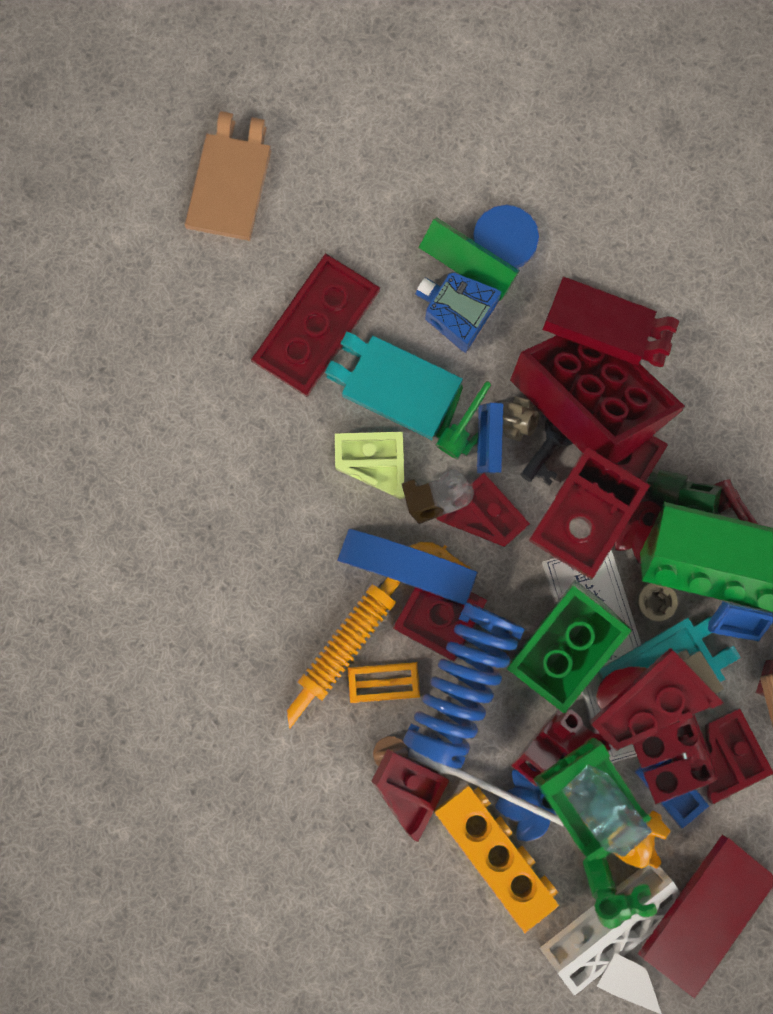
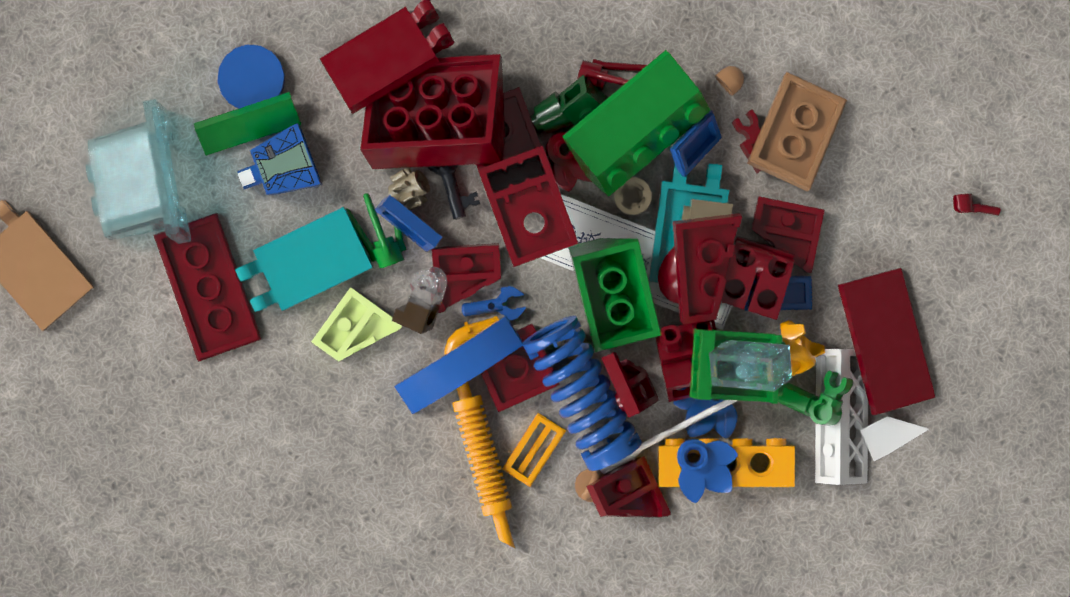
camera: 60 degrees left, 10 degrees up
(359, 203) = (137, 179): none -> clear light blue windscreen
(478, 560) = (495, 305): none -> blue bar
(480, 845) = (708, 471): none -> blue plate
(503, 721) = (631, 383): none -> dark red wing

